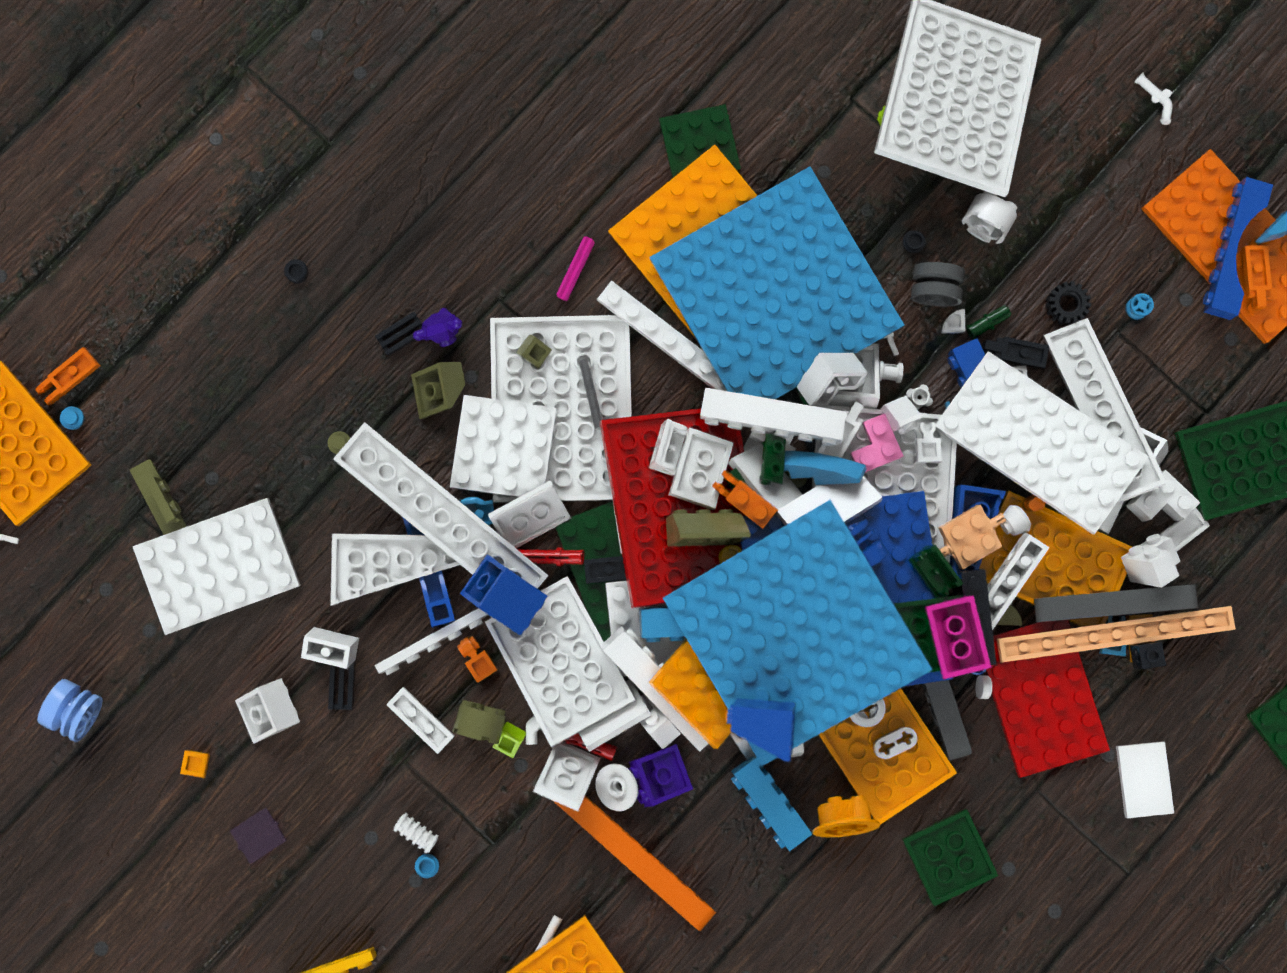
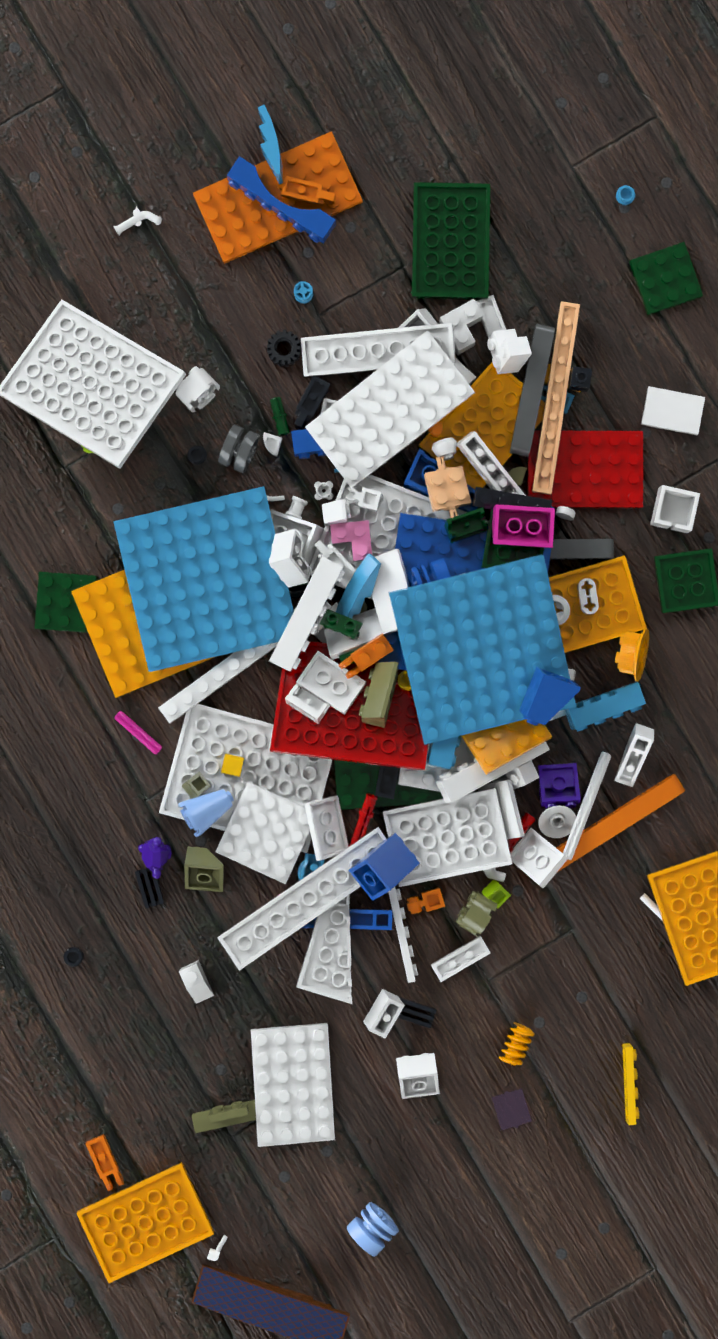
camera: 65 degrees left, 5 degrees up
(72, 418) = (140, 1167): dark azure plate -> none
(195, 763) = (441, 1143): light orange tile -> none
(305, 418) = (196, 982): none -> white slope
(336, 818) = (517, 1045): none -> light orange piece
(337, 441) = (222, 961): olive plate -> none
(416, 833) = (546, 986): white piece -> none
(427, 865) = (573, 985): dark azure plate -> none
(509, 368) = (205, 810): none -> light blue cone
(570, 385) = (232, 765): none -> yellow tile
(590, 391) = (243, 750): flat silver bar -> none
(646, 816) = (586, 805): none -> white axle
(723, 856) = (634, 754): none -> white slope
(1031, 816) = (675, 509): none -> white piece

